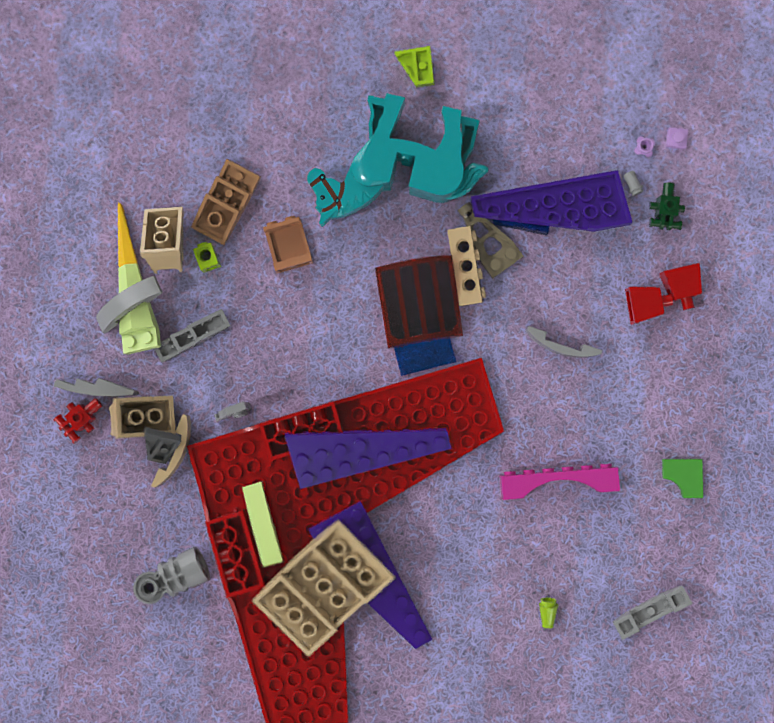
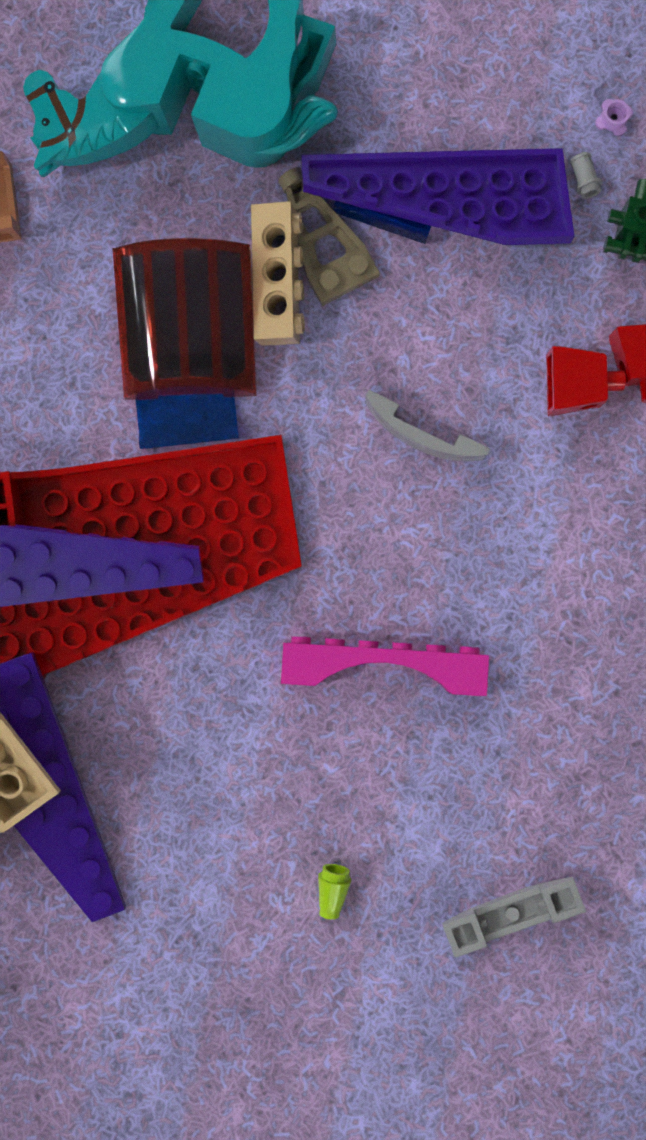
camera: 10 degrees right, 0 degrees up
(686, 475) = (607, 686): bright green tile -> none

